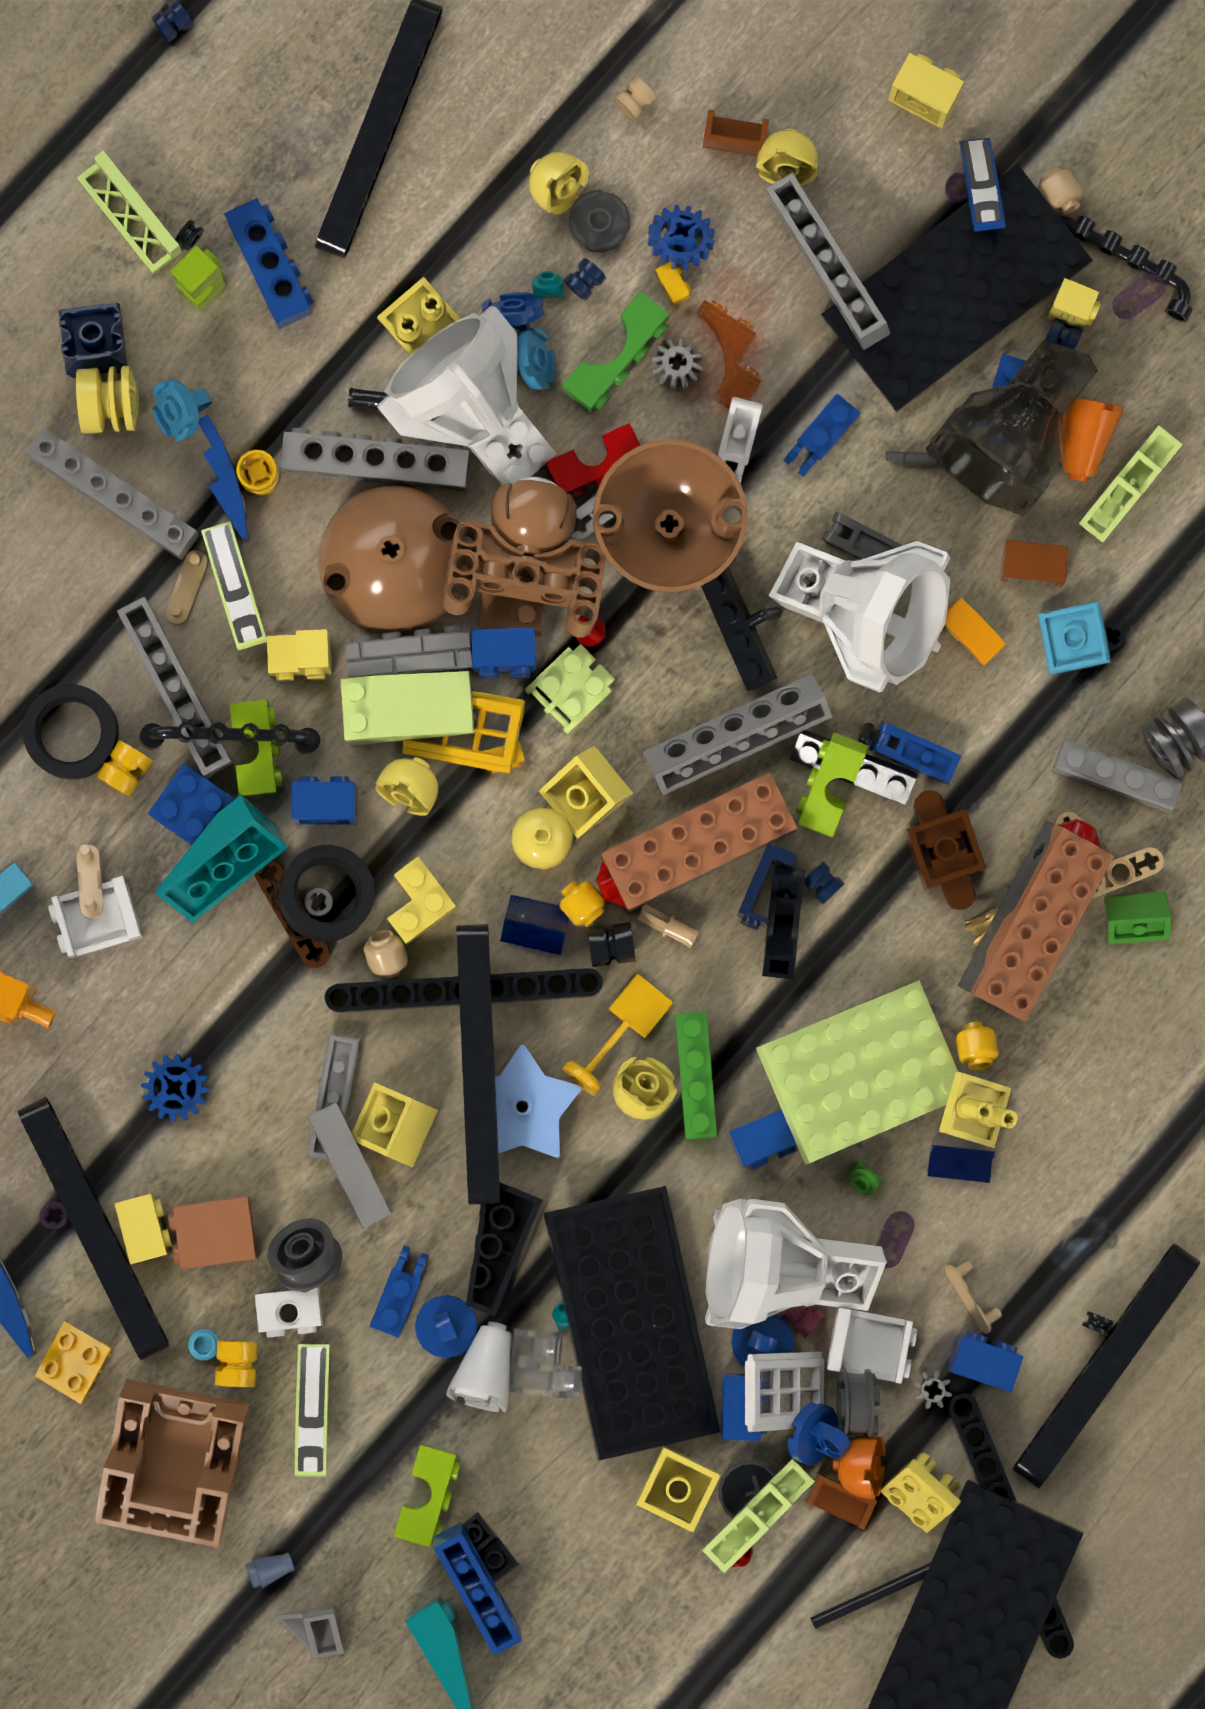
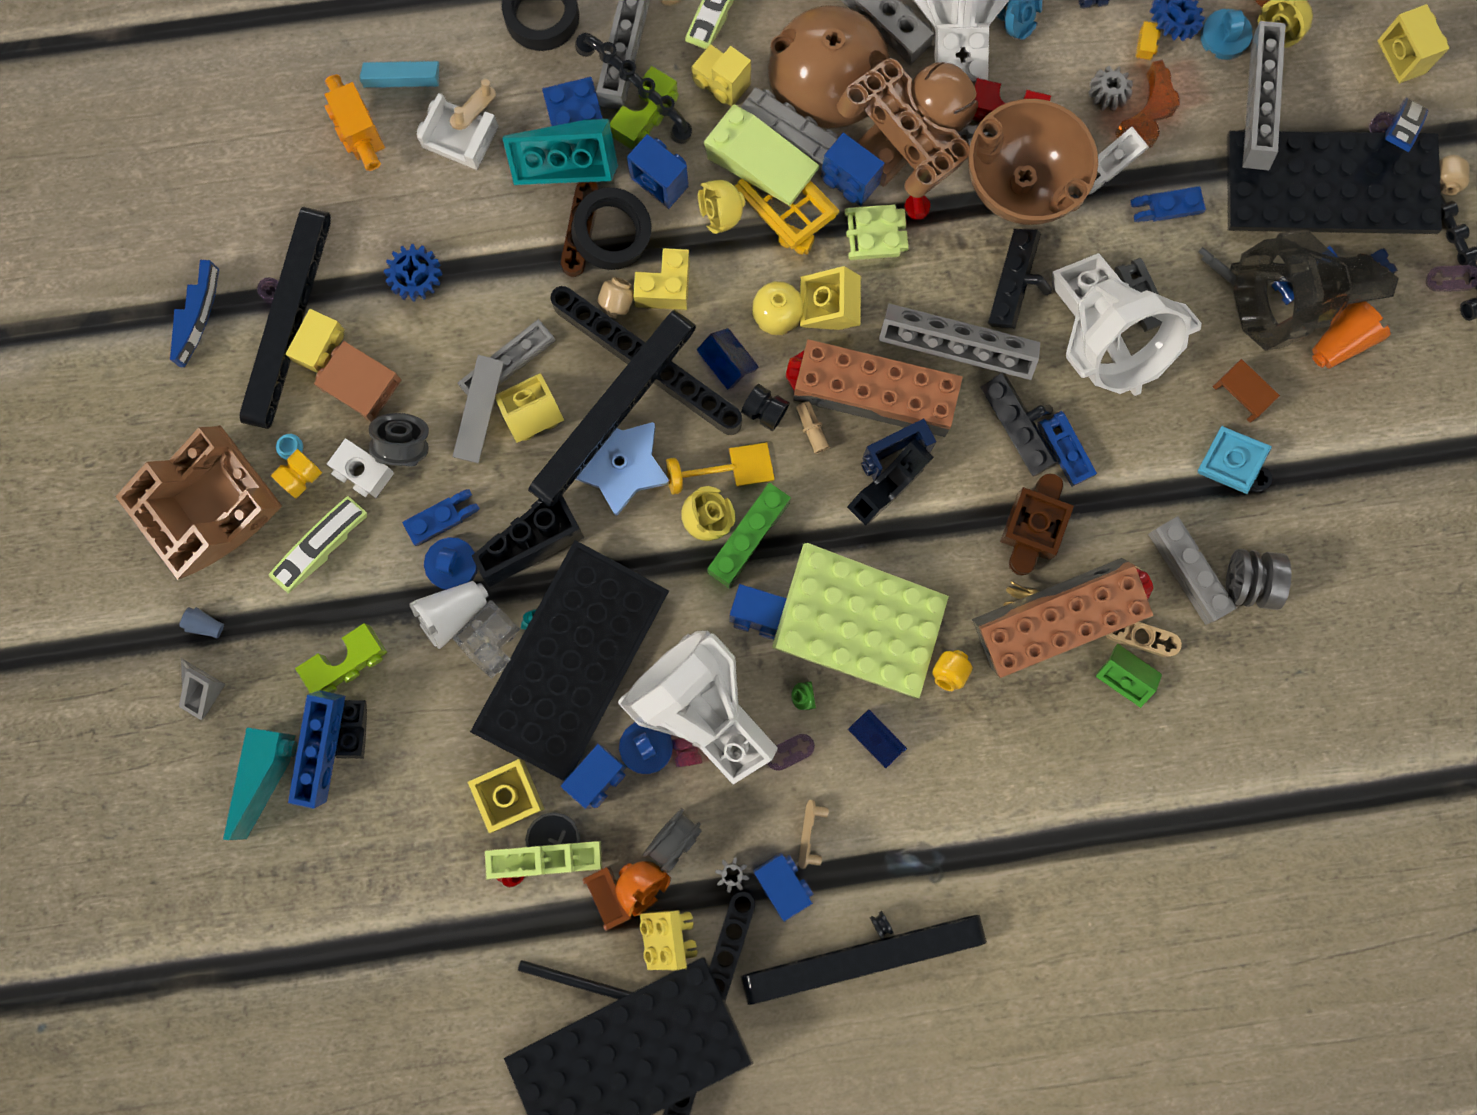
camera: 40 degrees right, 5 degrees down
(73, 1362) = (199, 389): yellow hinge -> none
(124, 768) = (553, 56): yellow wheel -> none
(309, 903) = (602, 225): light grey bush -> none
(582, 903) = (768, 367): yellow head -> none
(592, 383) = (1046, 58): bright green arch -> none
(741, 213) = (1226, 33): none -> dark azure tile
(780, 1387) = (630, 789): white piece -> none
(817, 1435) = (627, 838): blue tile -> none
(818, 877) = (937, 481): dark blue wheel -> none
(841, 759) = (975, 430): lime arch -> none
(871, 1342) = (717, 808): white panel -> none
(972, 631) = (1168, 402): light orange slope -> none
(977, 1110) = (917, 711): light yellow plate -> none
(1074, 305) = (1409, 246): light yellow brick -> none
(1131, 483) = (1352, 392): yellowish green slope -> none

